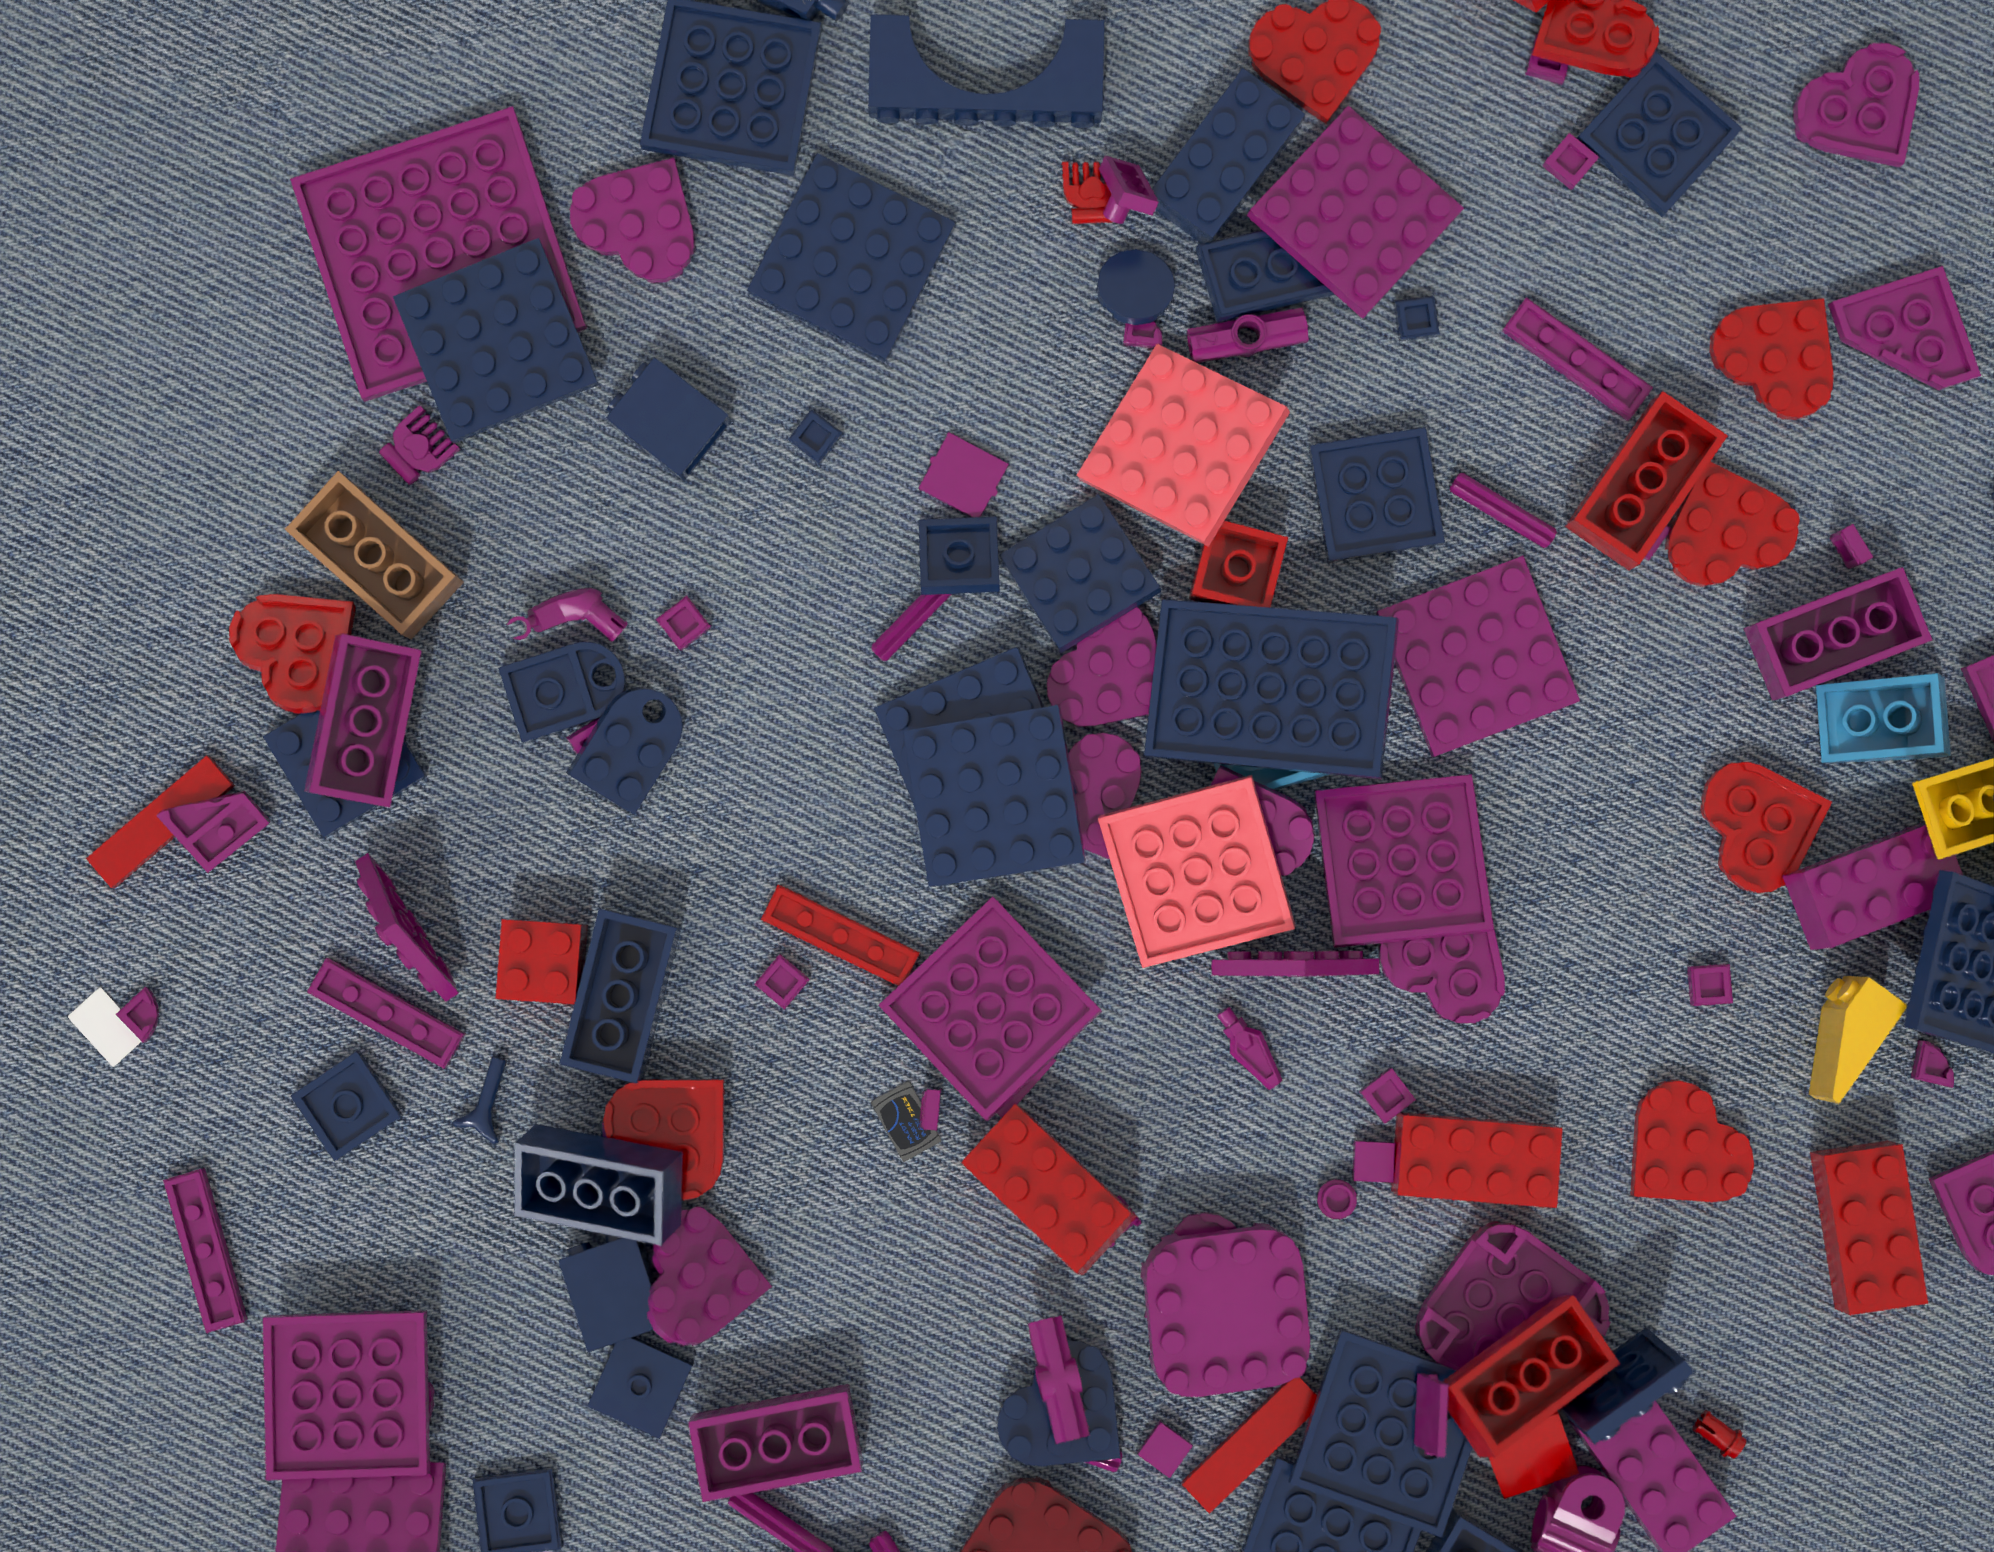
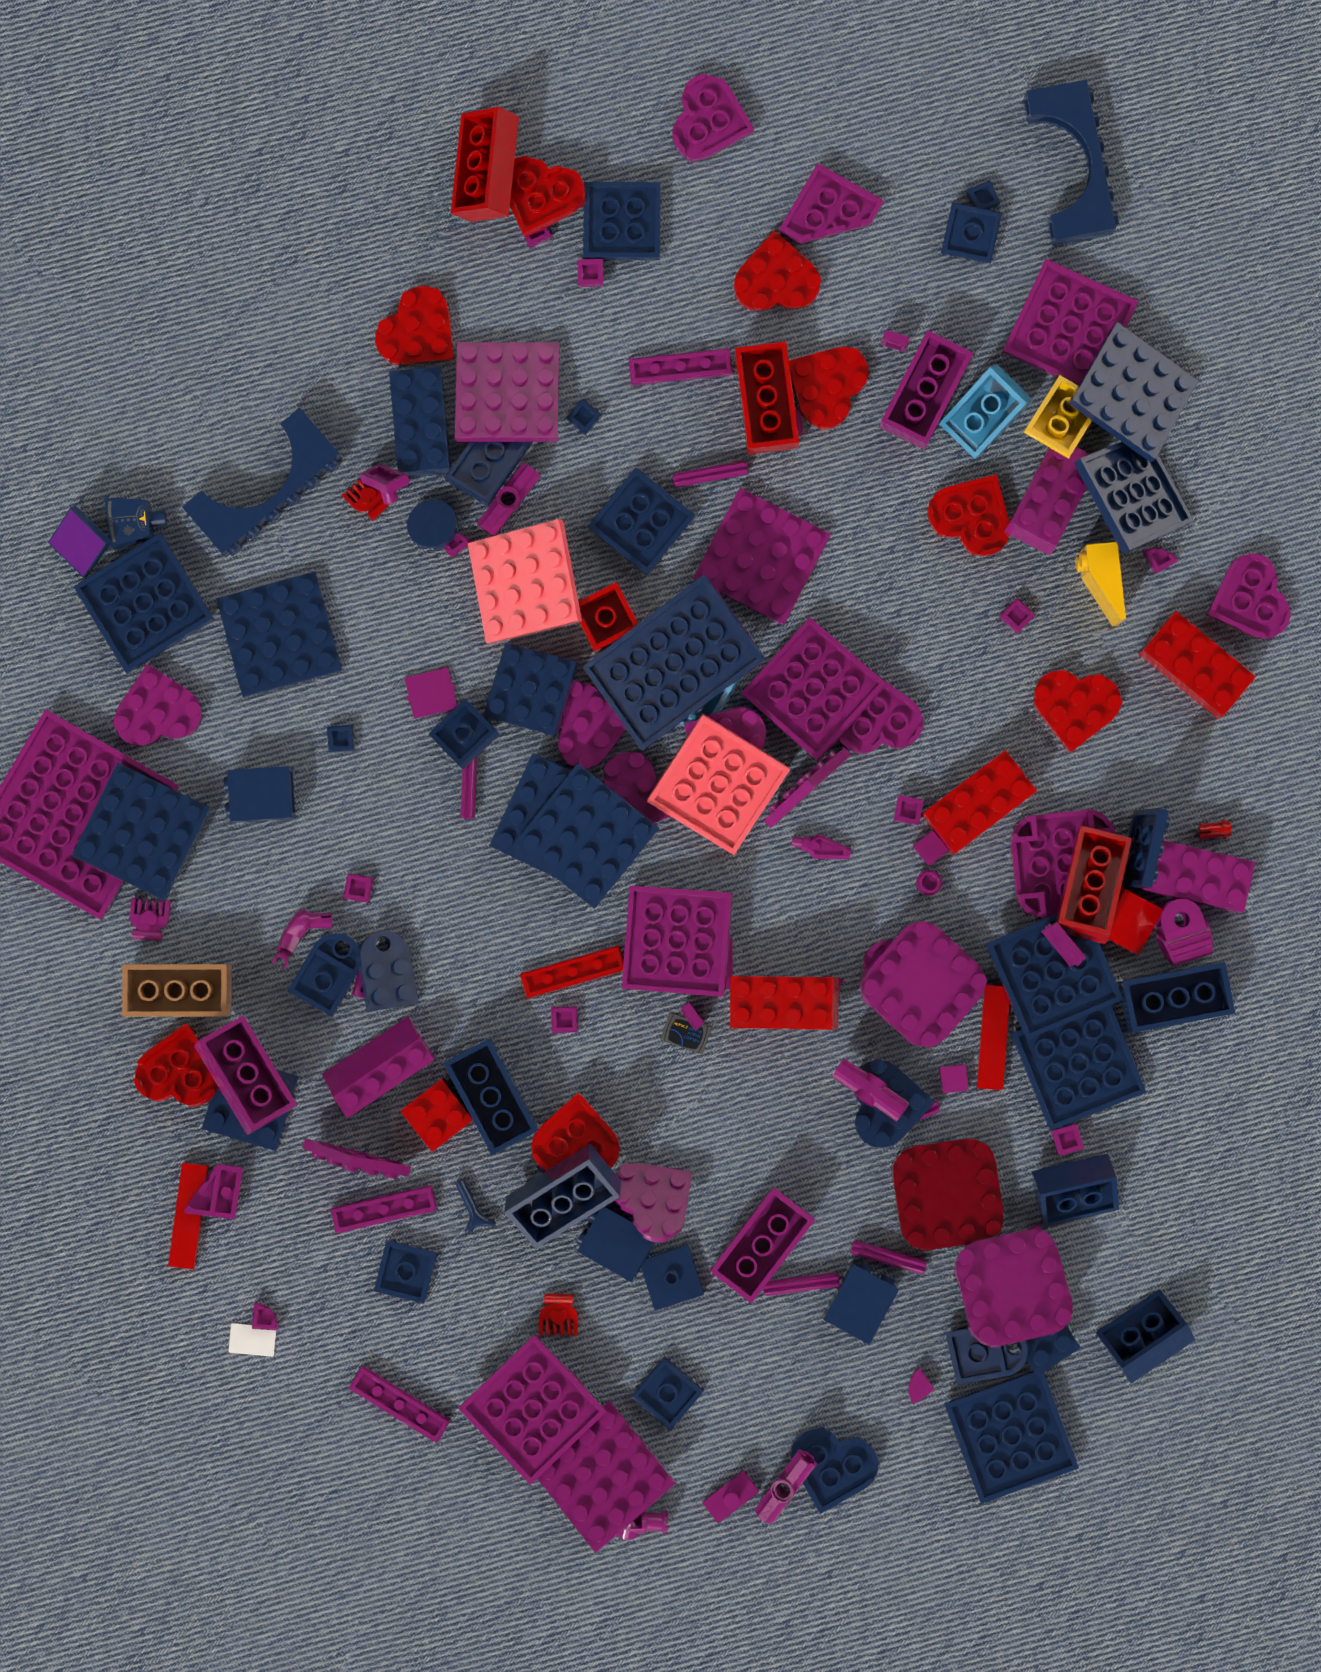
camera: 30 degrees left, 0 degrees up
(478, 1308) = (558, 1312): none -> red piece
(523, 846) = (378, 1067): none -> magenta slope

